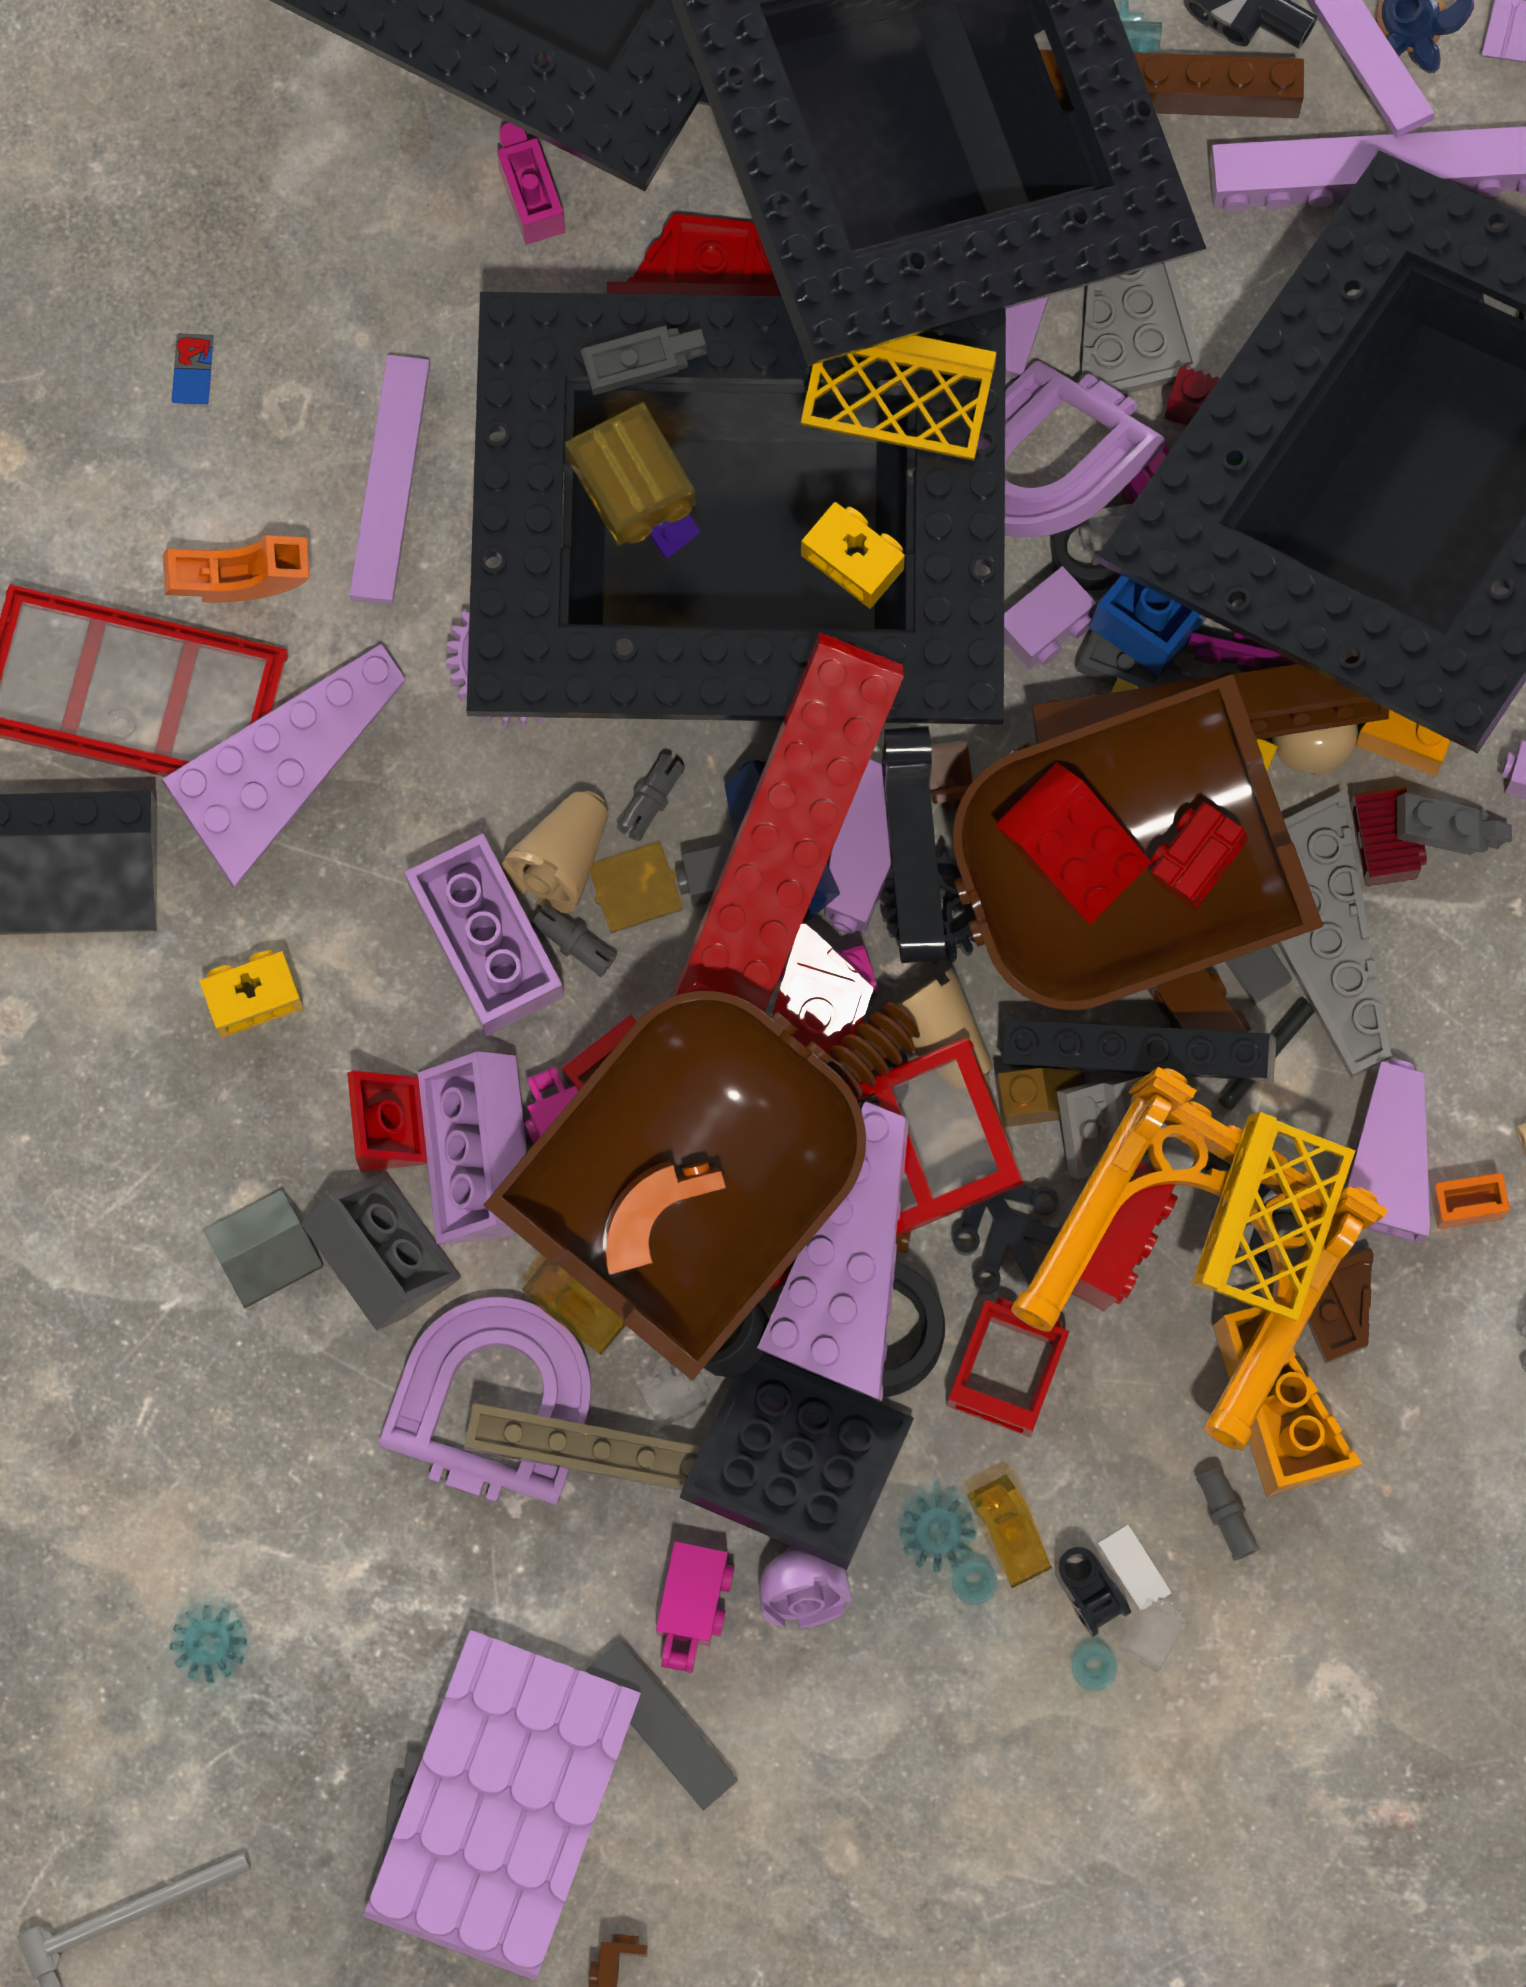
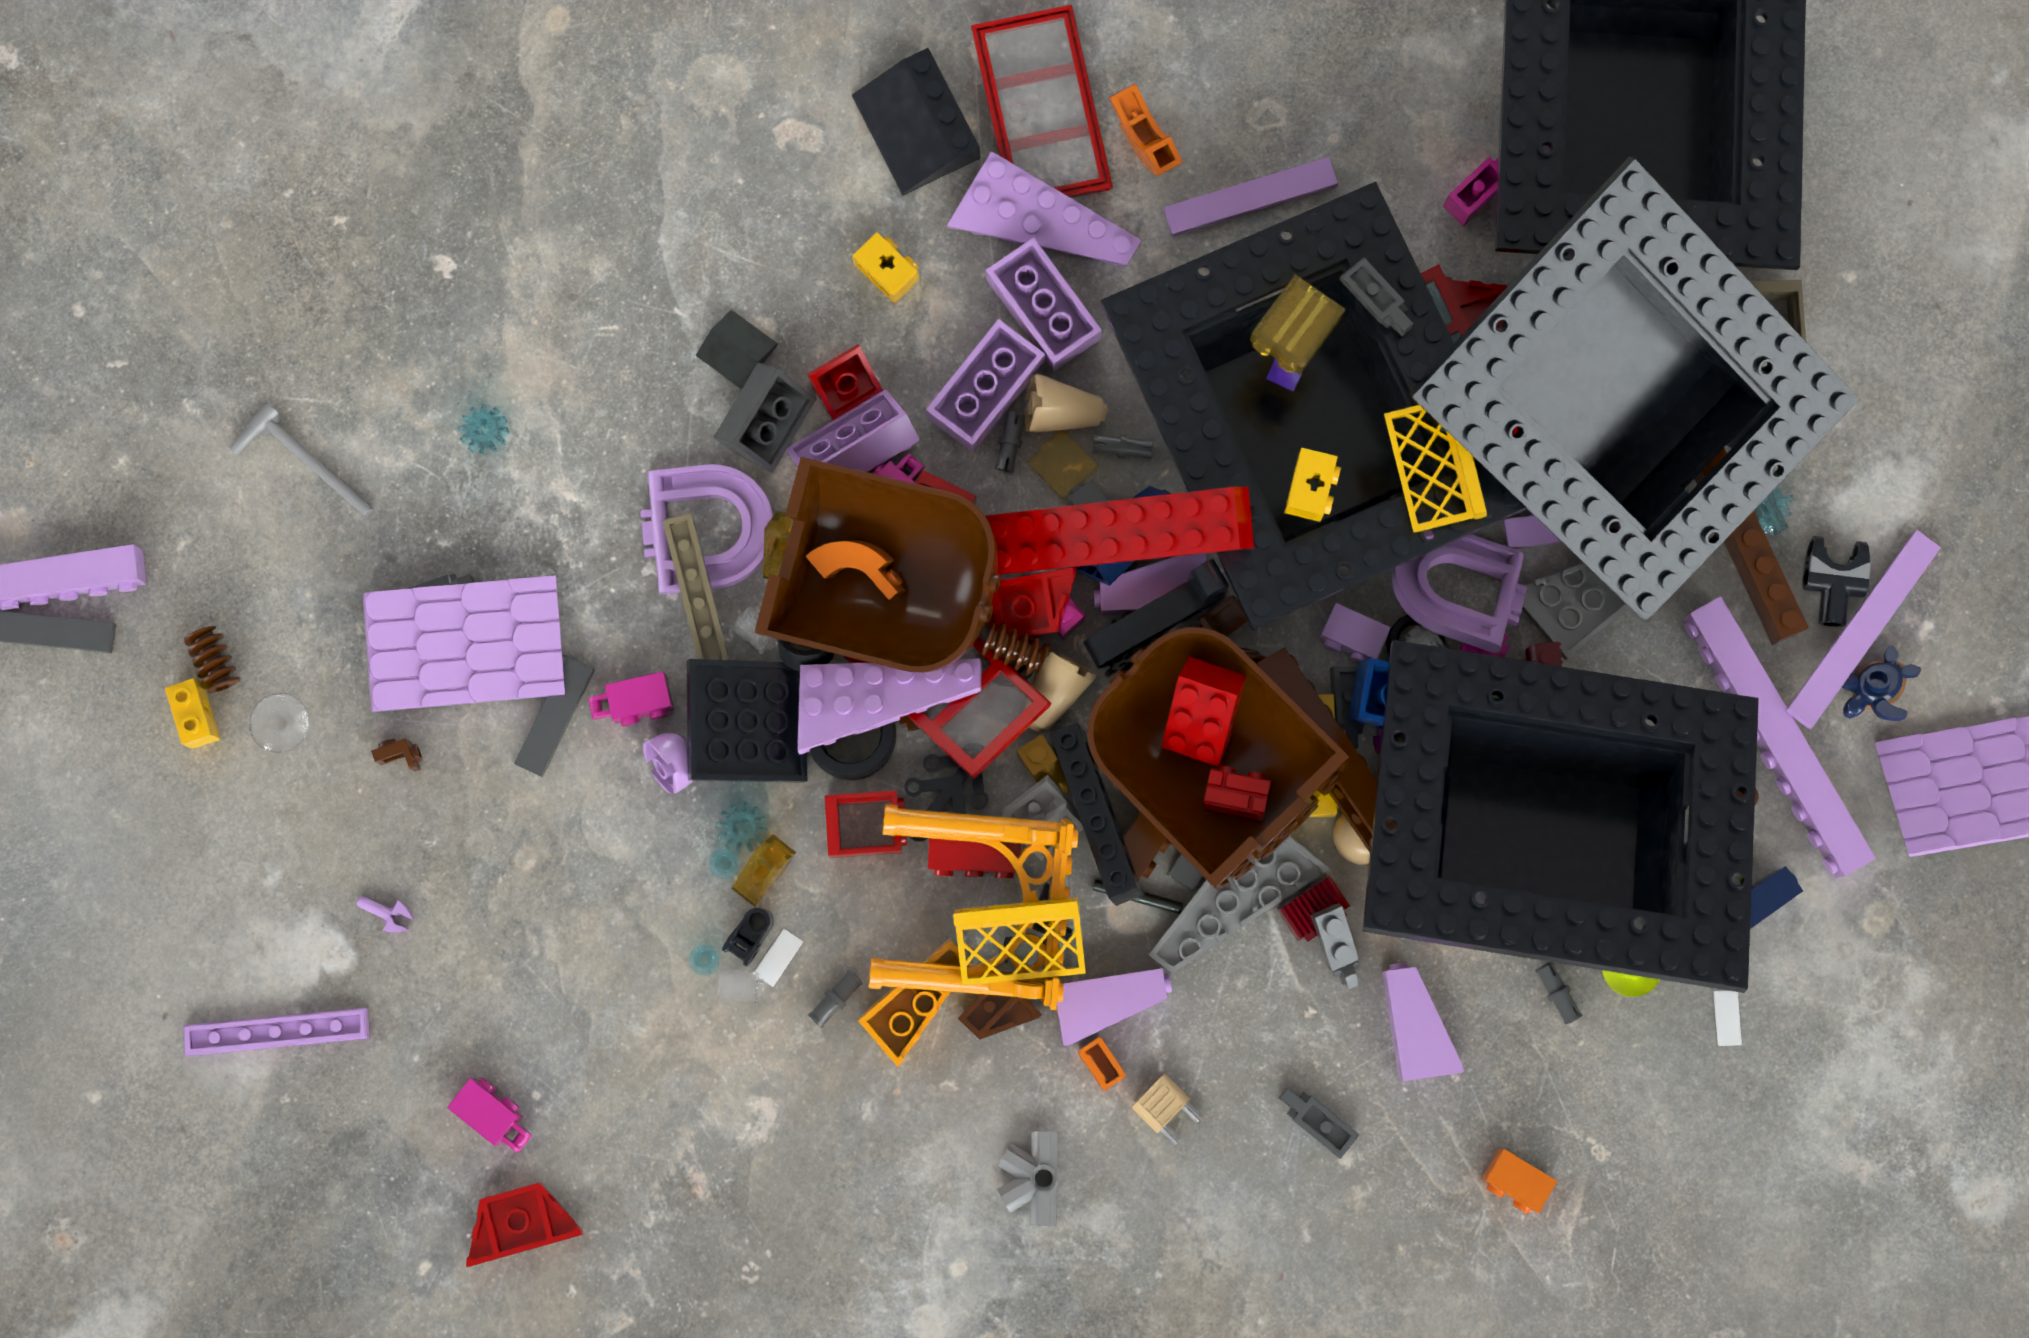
camera: 65 degrees right, 5 degrees up
(192, 369) = (1264, 47): sticker -> none
(408, 808) = (1043, 304): none -> lavender brick

